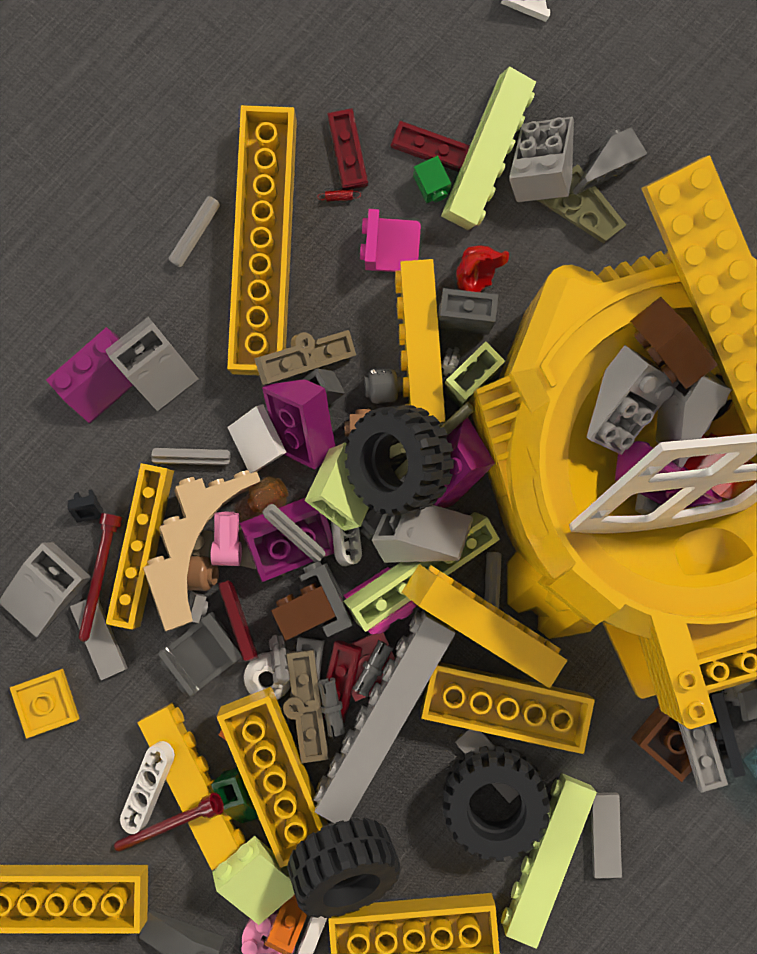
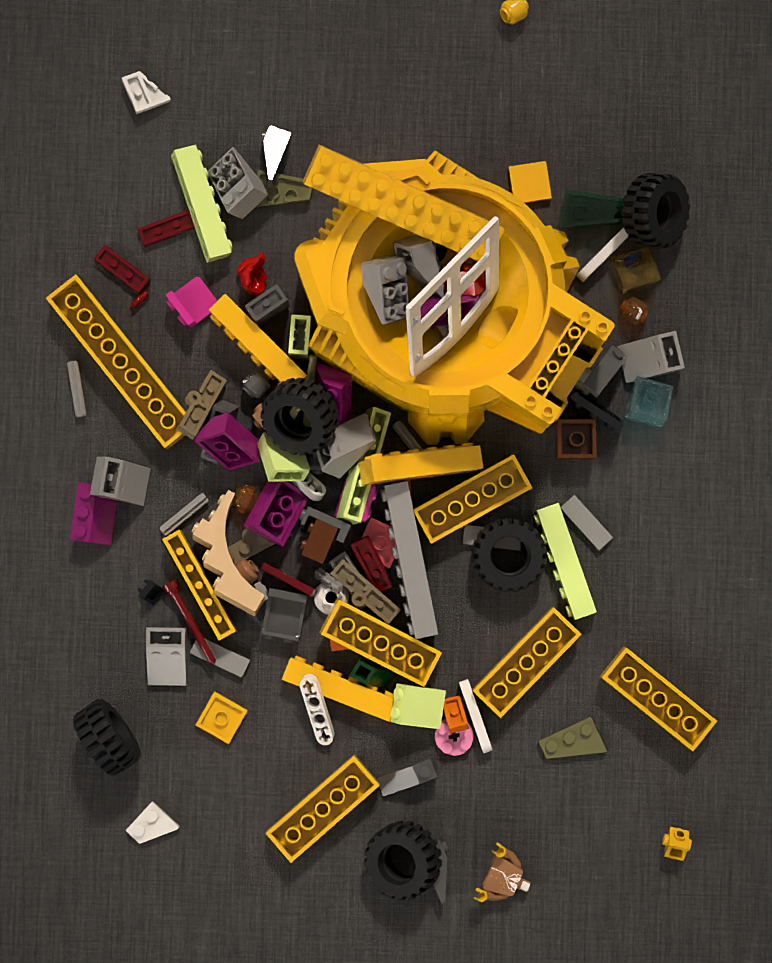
camera: 45 degrees left, 0 degrees up
(209, 807) = (358, 687): dark red piece -> none
(226, 548) = (246, 543): bright pink piece -> none
(256, 439) = (212, 473): white tile -> none
(293, 532) = (283, 504): light grey axle -> none
(331, 707) = (378, 580): dark grey pin -> none
(343, 868) = (456, 654): black tyre -> none
(372, 668) = (383, 541): dark grey pin -> none
(432, 180) = (185, 247): green brick -> none
(450, 361) = (281, 339): light grey axle -> none
(672, 344) = (383, 243): reddish brown brick -> none
(703, 757) = (589, 430): light grey tile -> none

